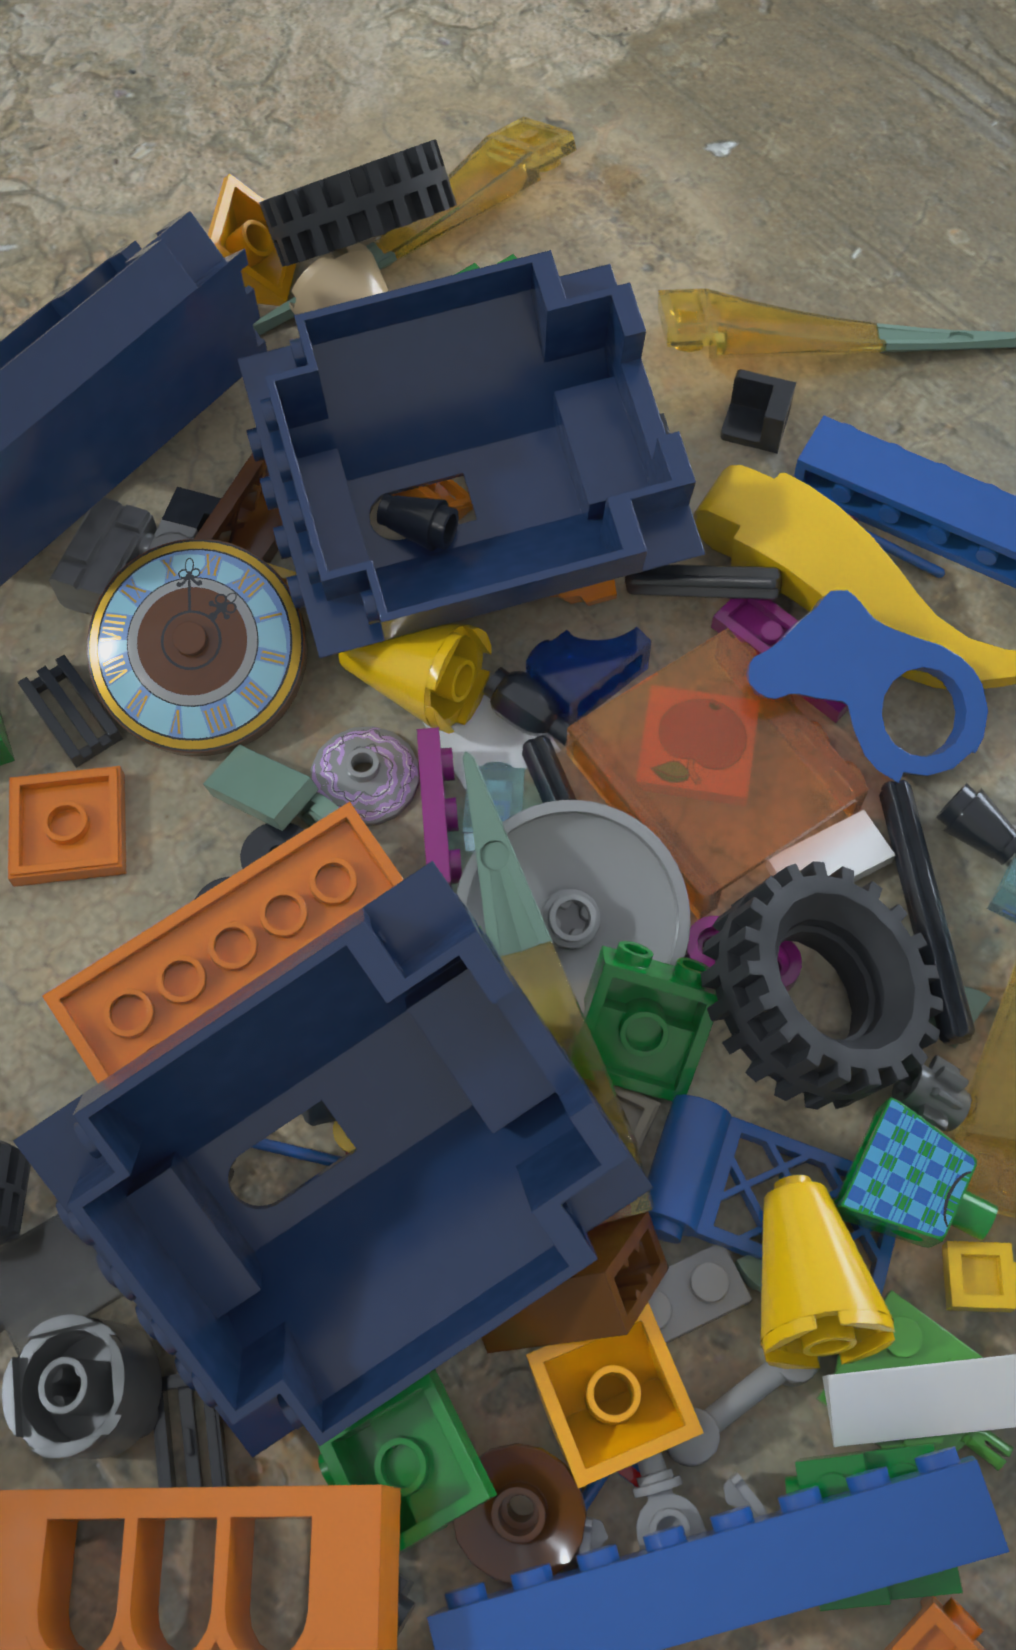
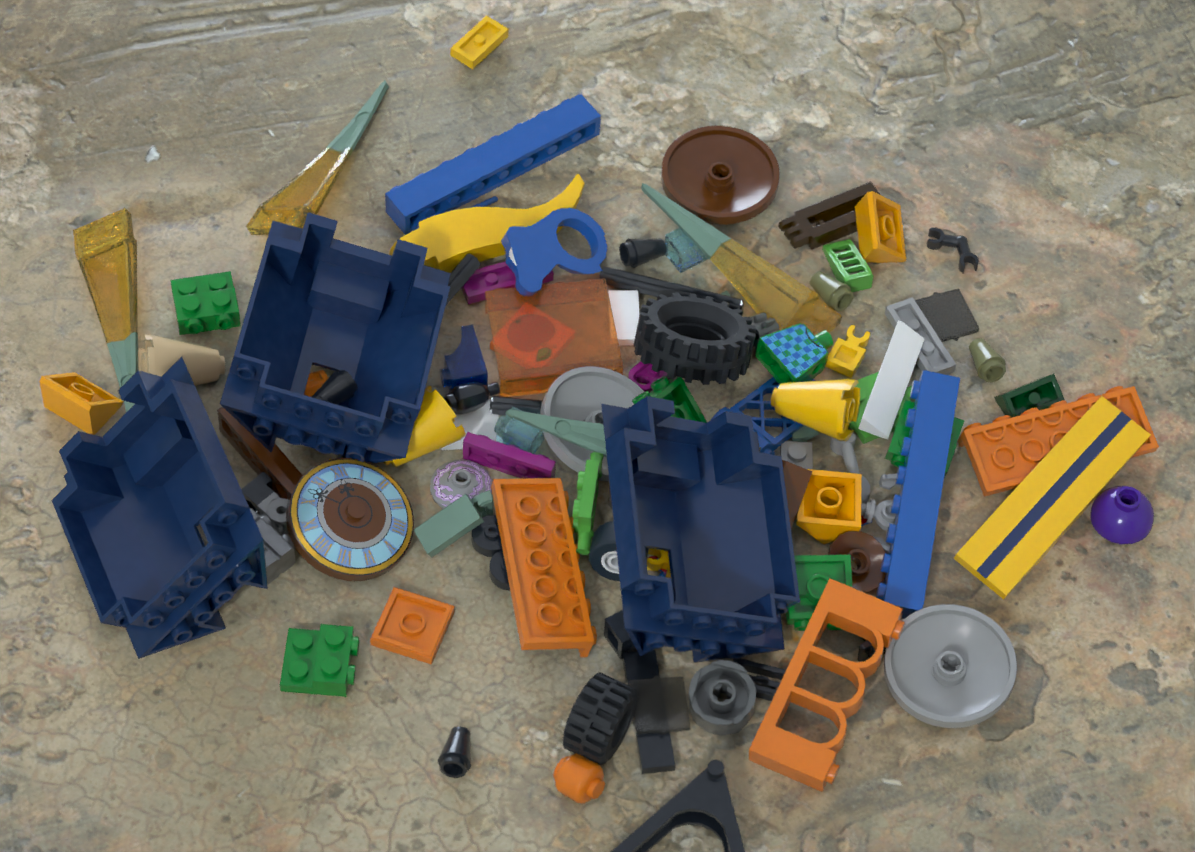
camera: 70 degrees left, 10 degrees down
(49, 680) = (341, 595): black tile -> none
(358, 203) = (116, 322): black tyre -> none
(758, 411) = (355, 220): black panel -> none

